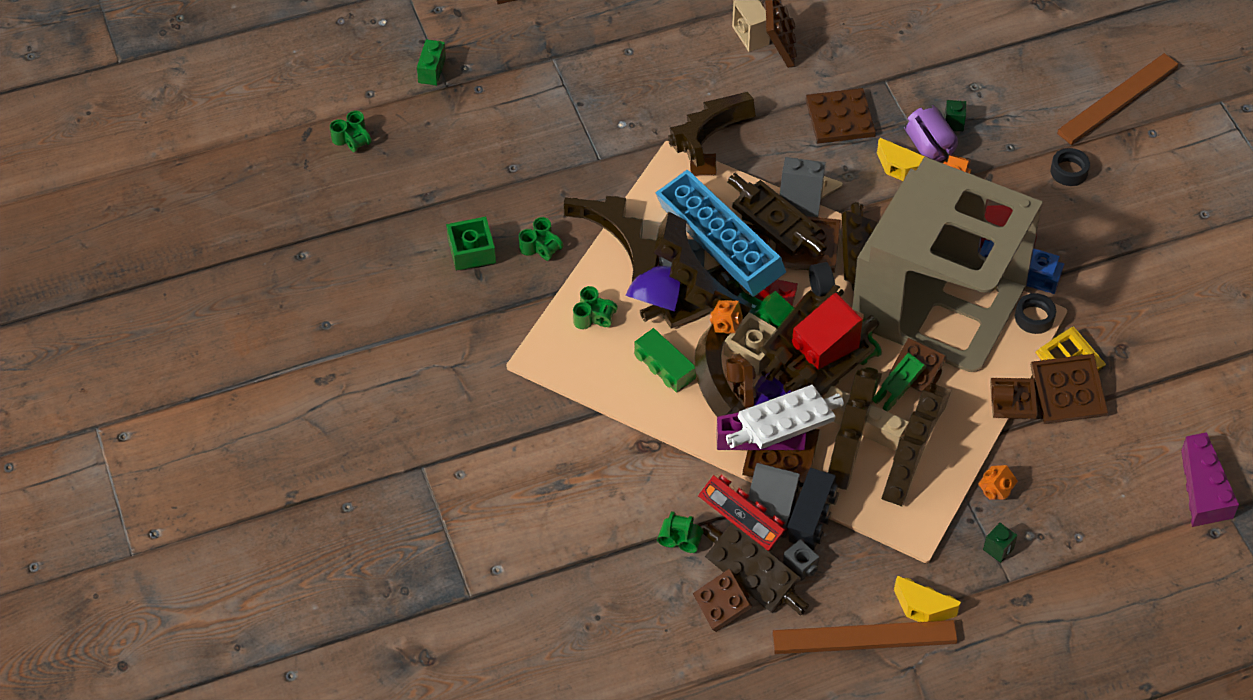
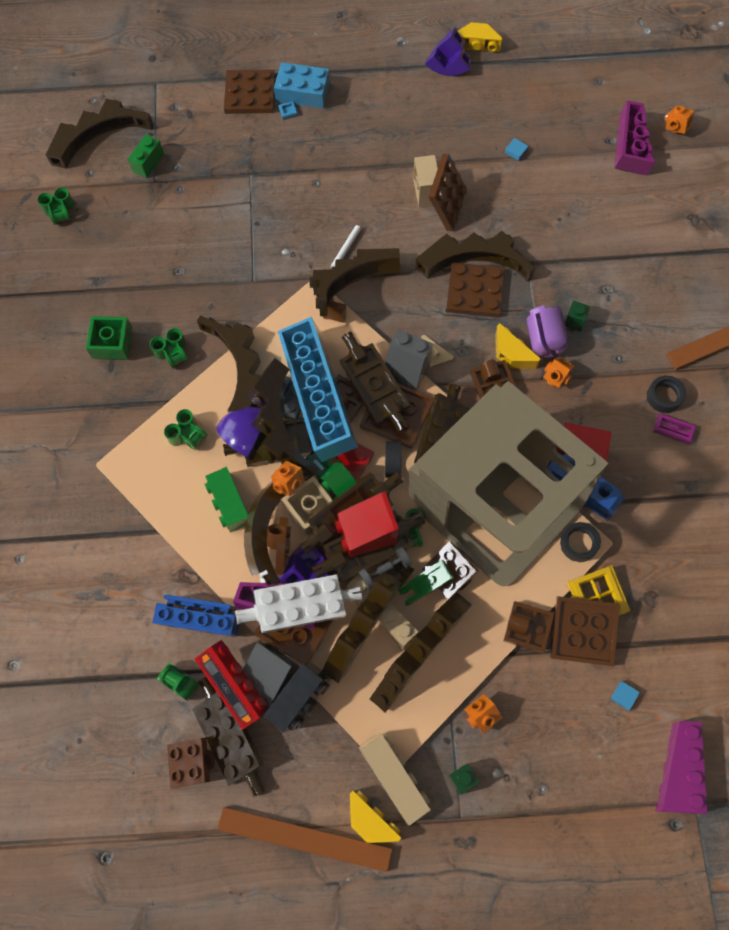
camera: 20 degrees right, 15 degrees up
(375, 31) = (72, 138): none -> dark brown arch
(676, 474) = (194, 620): none -> blue brick
(688, 102) = (347, 244): none -> white bar
(799, 552) = (267, 735): dark grey brick -> none
(824, 77) = (473, 248): none -> dark brown arch
(869, 357) = (402, 557): none -> dark grey wheel
(884, 189) = (489, 374): none -> reddish brown plate
(933, 556) = (394, 778): none -> tan brick
(1089, 199) = (673, 431): none -> magenta tile
(1127, 437) = (624, 695): none -> dark azure tile

